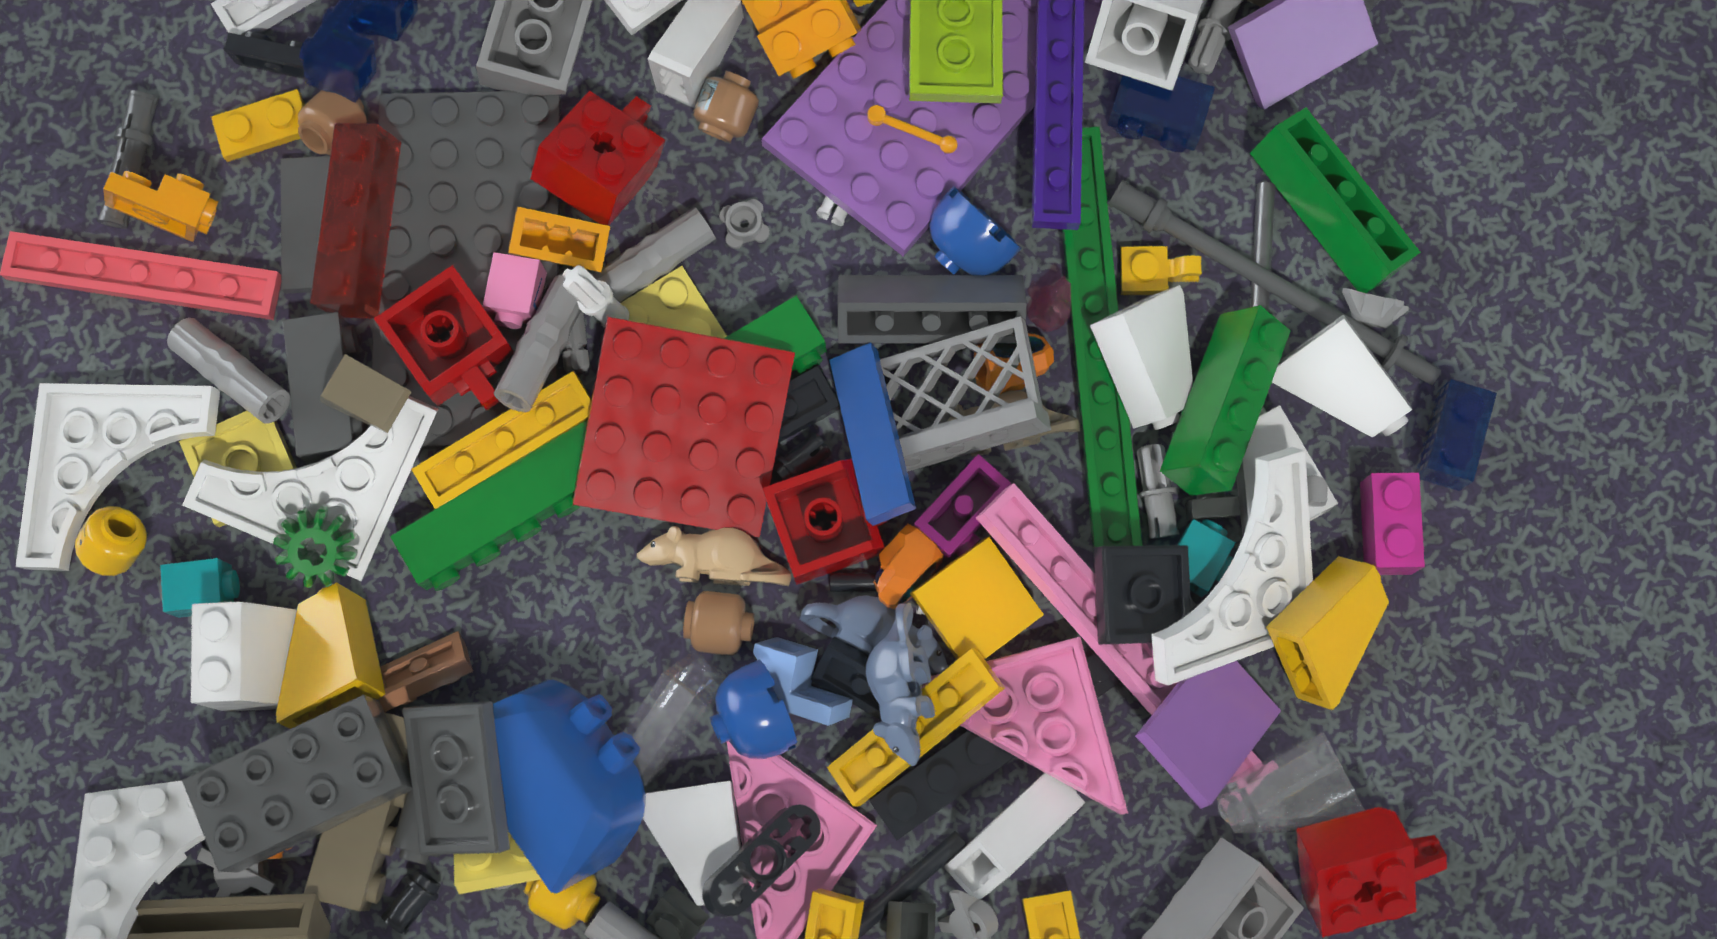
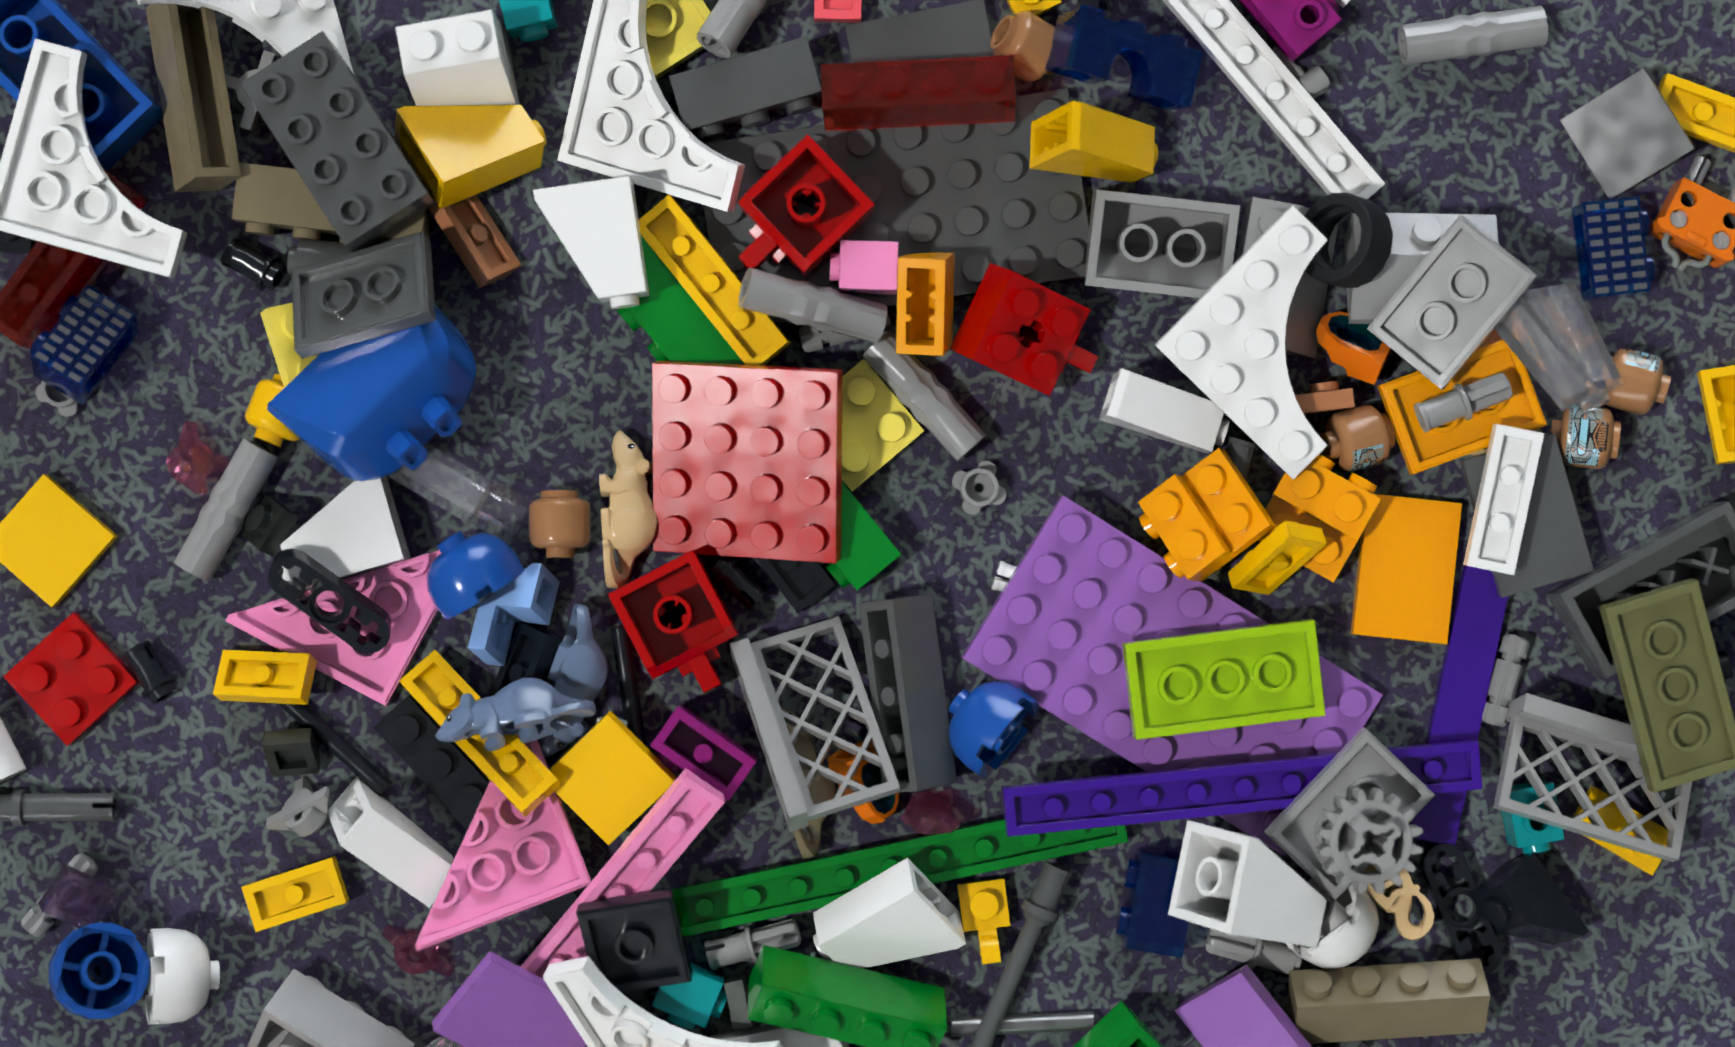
camera: 80 degrees right, 10 degrees up
(321, 531) = (576, 113): green gear -> none
(364, 394) = (730, 137): dark tan slope -> none
(432, 70) = (1092, 144): none -> yellow slope
(439, 535) = (601, 235): none -> white slope
(593, 296) = (865, 353): white axle -> none
(725, 107) = (1099, 451): medium nougat head -> none
(872, 434) = (764, 651): blue tile -> none
(877, 116) = (1101, 612): light orange hinge -> none
(905, 565) = (638, 701): orange rock -> none
(1121, 826) = (404, 946): none -> clear pink piece

